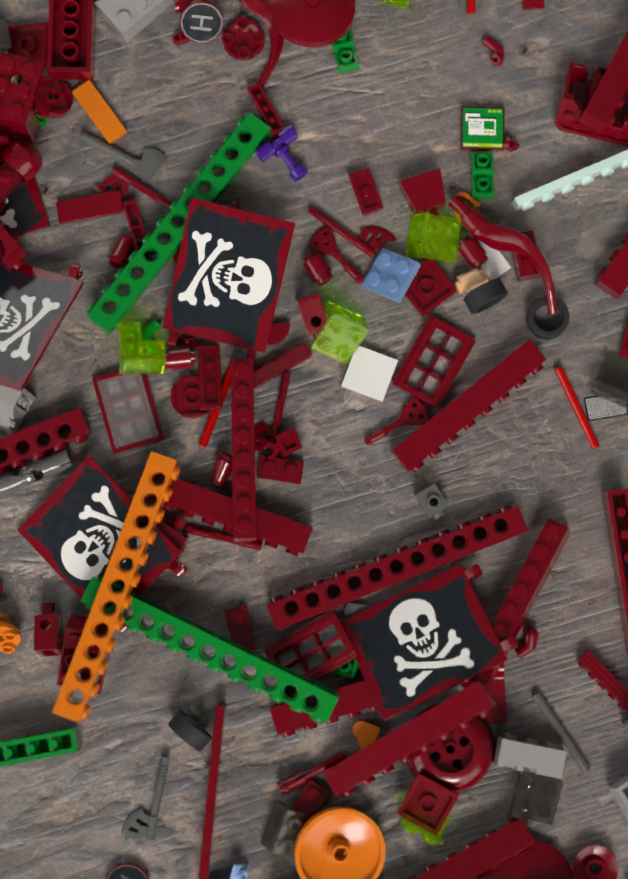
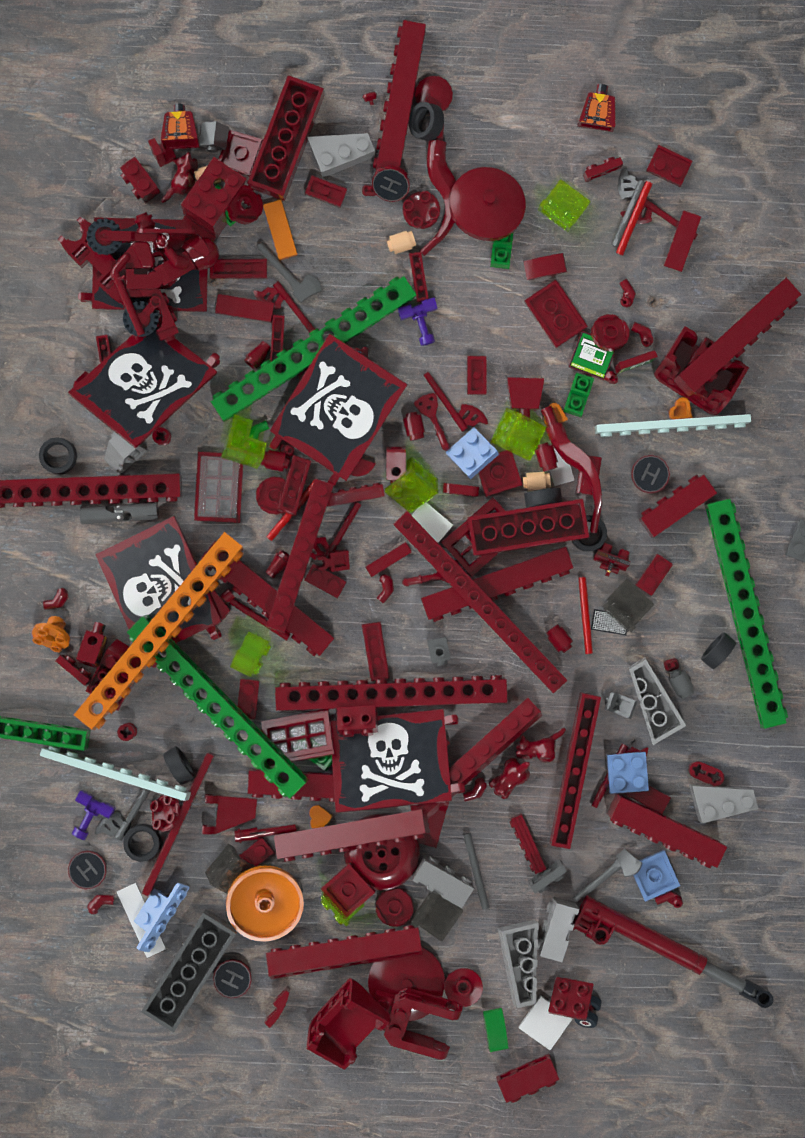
camera: 15 degrees right, 5 degrees up
(27, 661) = (69, 665): none -> dark red plate
(48, 369) = (155, 435): none -> dark red bush
(69, 168) = (239, 269): none -> dark red tile
(109, 813) = (92, 808): none -> dark purple bar
(115, 720) = (123, 736): none -> dark red bush
(132, 763) = (124, 775): none -> light aqua plate
(134, 55) = (326, 191): none -> dark red plate
(167, 847) = (139, 828): none -> black tyre
(192, 789) = (165, 812): none -> dark red dish
(226, 578) = (250, 654): none -> clear neon green brick
(234, 79) = (401, 242): none -> light nougat brick
(265, 764) = (230, 812): none -> dark red flag
(341, 422) = (388, 559): none -> dark red piece
(351, 453) = (388, 588): none -> dark red arm
(362, 527) = (375, 651): none -> dark red tile
(370, 609) = (357, 720): none -> dark red brick
(392, 319) = (463, 490): none -> dark red beam
(397, 52) = (545, 266): none -> dark red slope
(426, 98) = (555, 314): none -> dark red tile
(459, 430) = (479, 601): none -> dark red brick
(482, 331) = (528, 527): none -> dark red brick
(485, 805) = (394, 907): none -> dark red tile
(492, 97) = (610, 332): none -> dark red tile
(529, 86) = (645, 334): none -> dark red arm
(531, 117) = (635, 362): none -> dark red tile
(558, 442) = (559, 638): none -> dark red brick
(562, 610) = (512, 775): none -> dark red animal
(584, 339) = (611, 562): none -> dark red hips
(584, 569) = (542, 749): none -> dark red animal
(590, 232) = (650, 474): none -> black tile
(597, 152) = (681, 410): none -> orange tile

